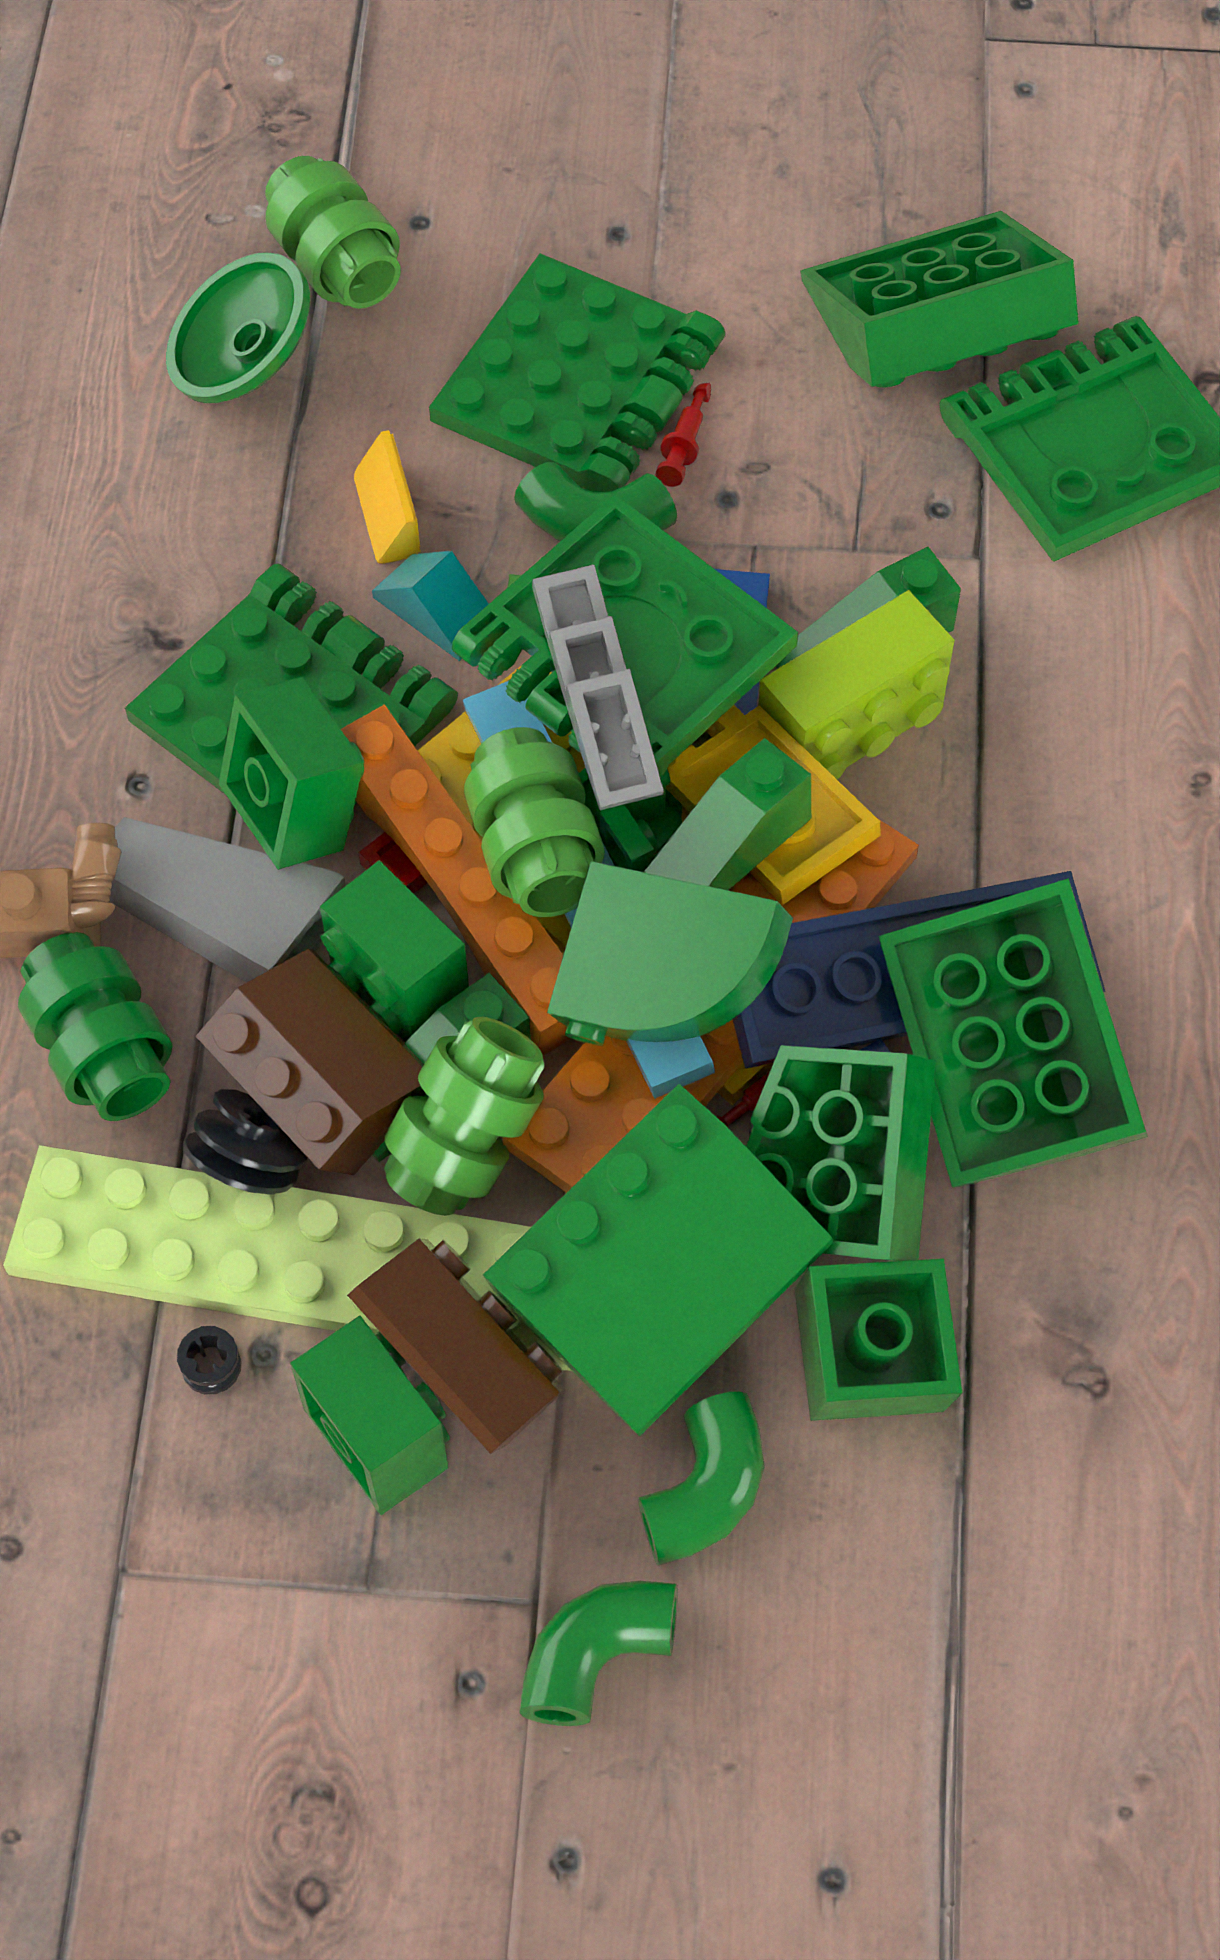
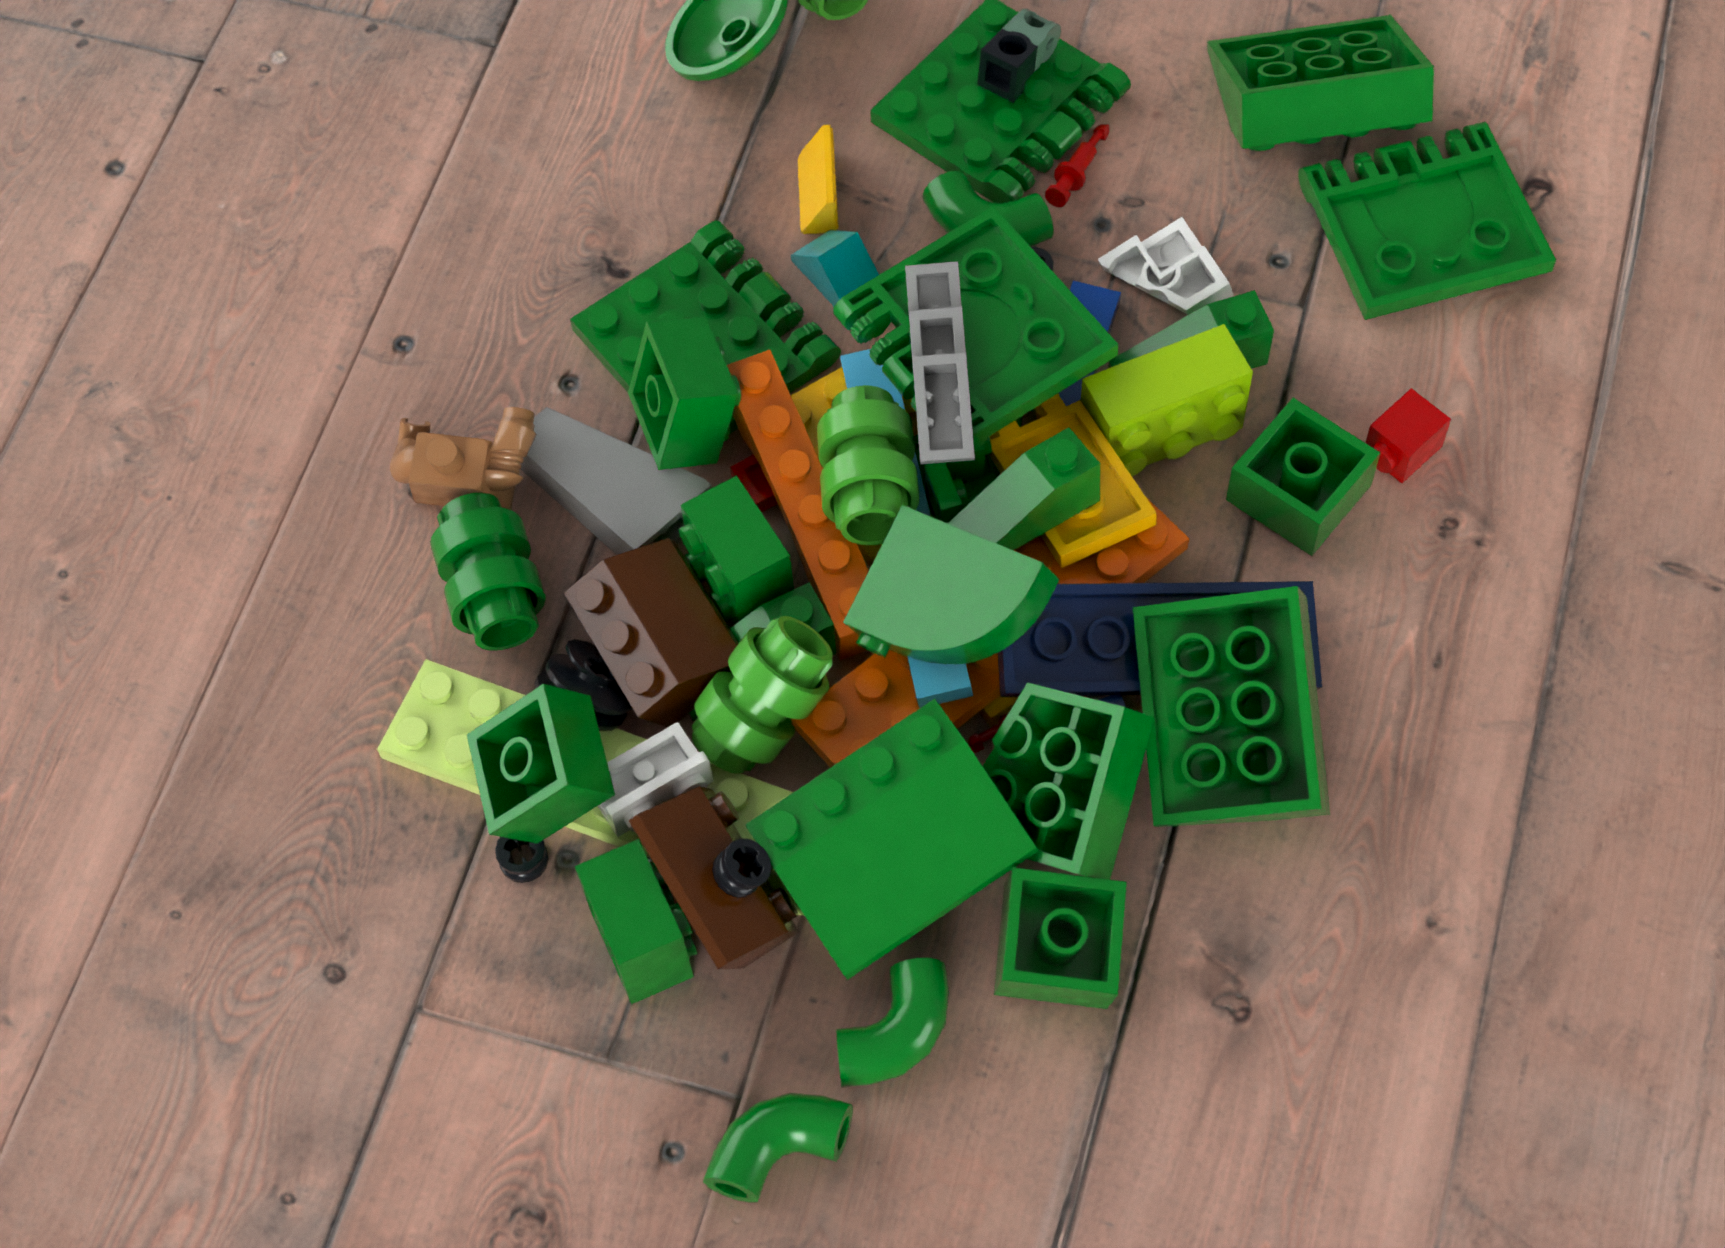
camera: 15 degrees right, 0 degrees up
(217, 1247) = (540, 764): none -> green brick
(348, 1241) = (653, 774): none -> white bracket
(508, 1322) = (726, 868): none -> black bush
(590, 316) = (1017, 53): none -> black leg
(820, 537) = (1170, 268): none -> white slope
(1029, 752) = (1302, 476): none -> green brick
(1133, 686) = (1407, 435): none -> red brick

